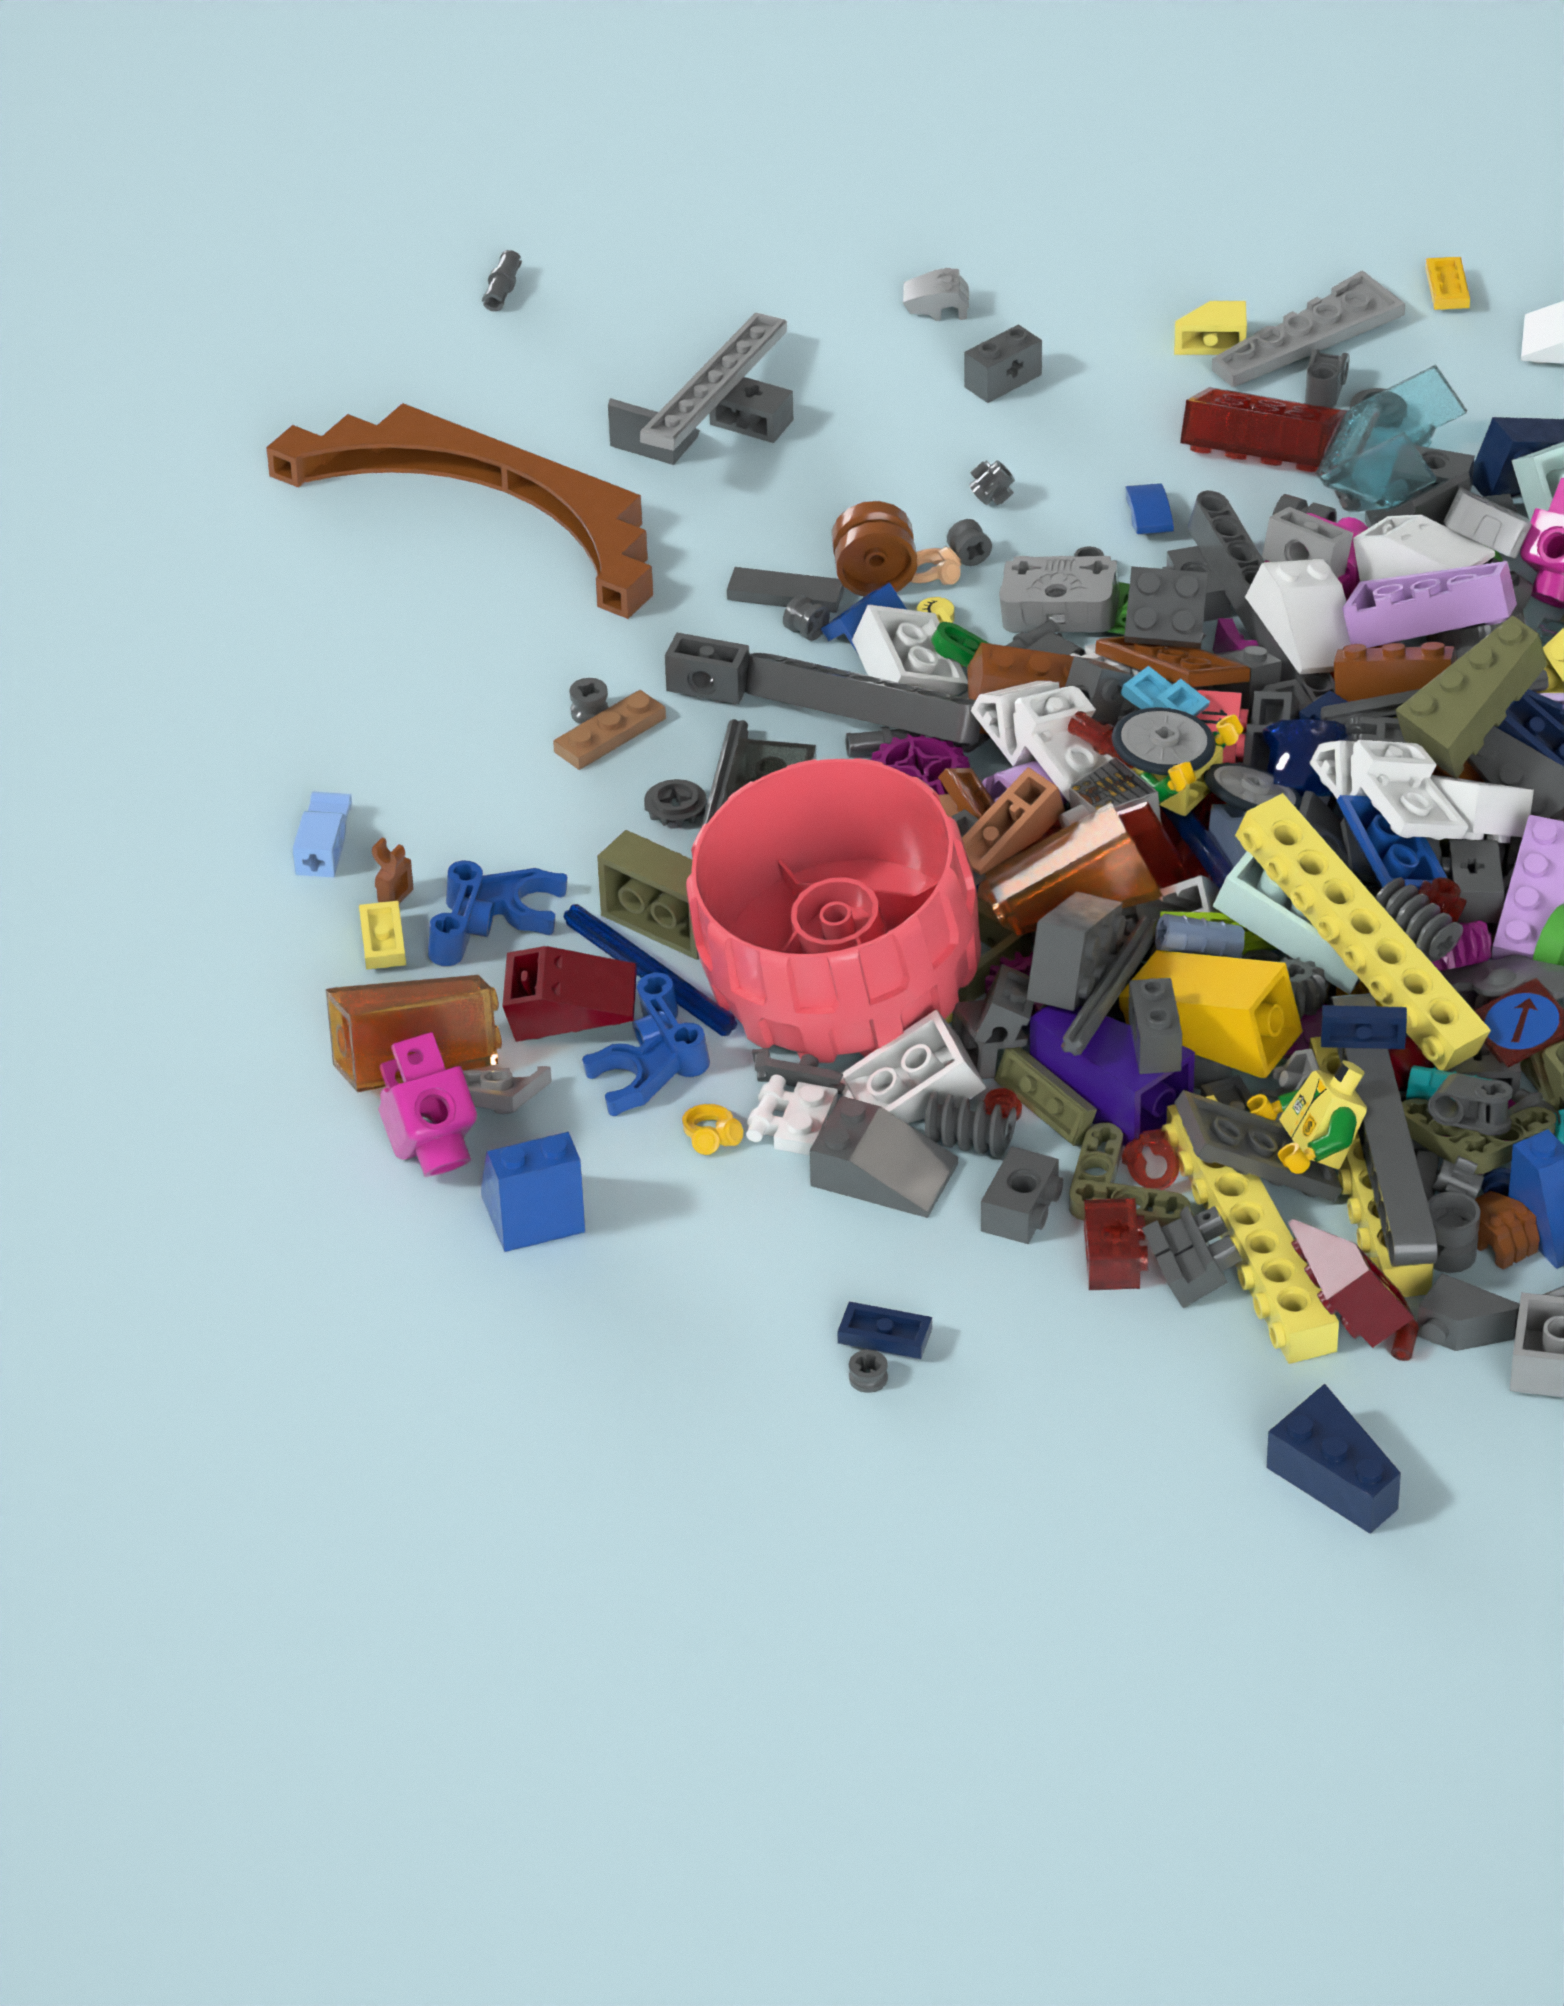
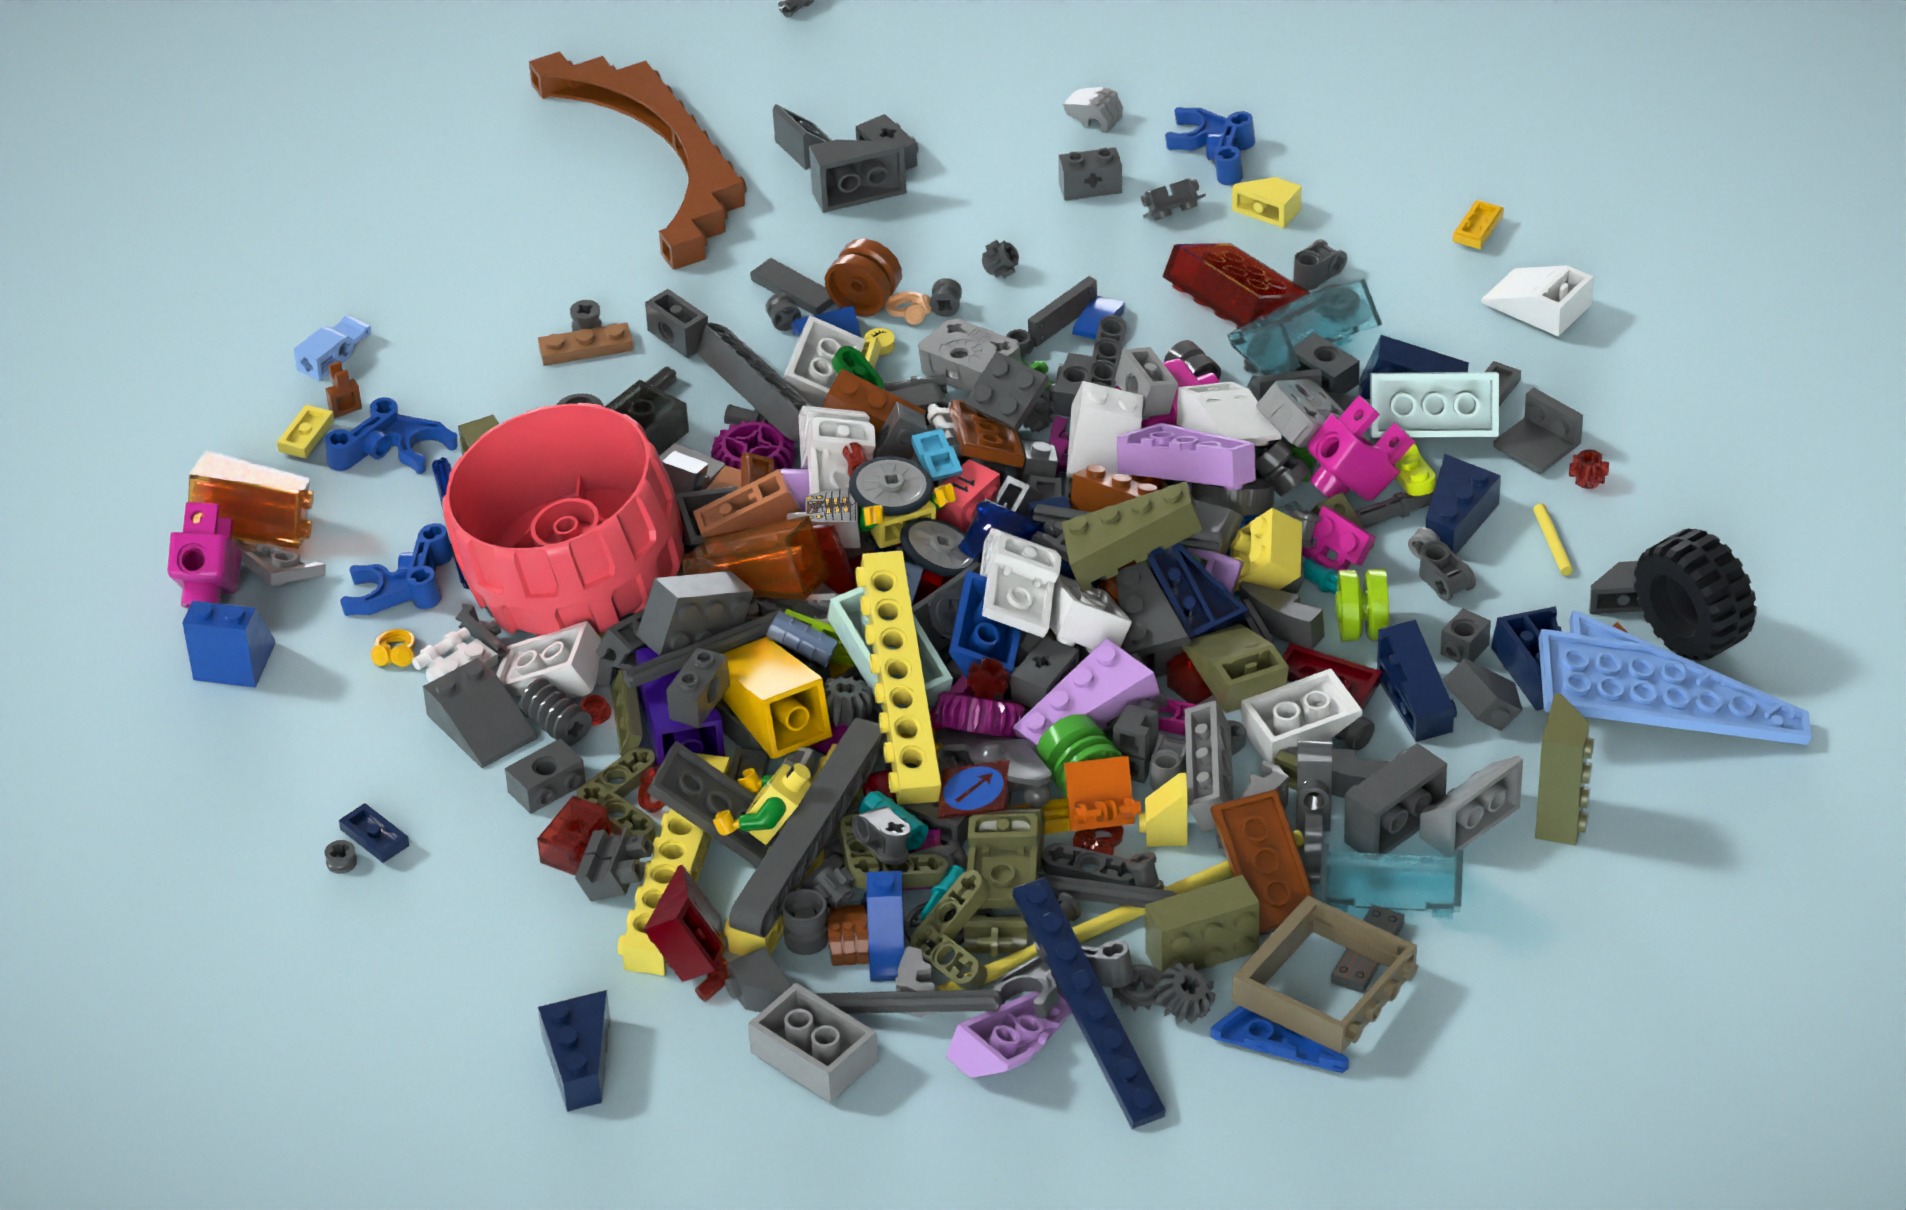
camera: 30 degrees right, 0 degrees up
(565, 992) = (373, 514): dark red slope -> none
(713, 381) = (861, 116): light grey tile -> none
(754, 444) = (856, 172): none -> dark grey slope
(1108, 279) = (1221, 136): none -> blue piece
(1108, 509) = (1061, 311): none -> dark grey tile
(1123, 356) = (1183, 196): none -> dark grey hinge
(1347, 312) = (1393, 219): light grey wing -> none
(1363, 1027) = (844, 746): dark blue plate -> none
(1420, 920) = (944, 683): dark grey piece -> none

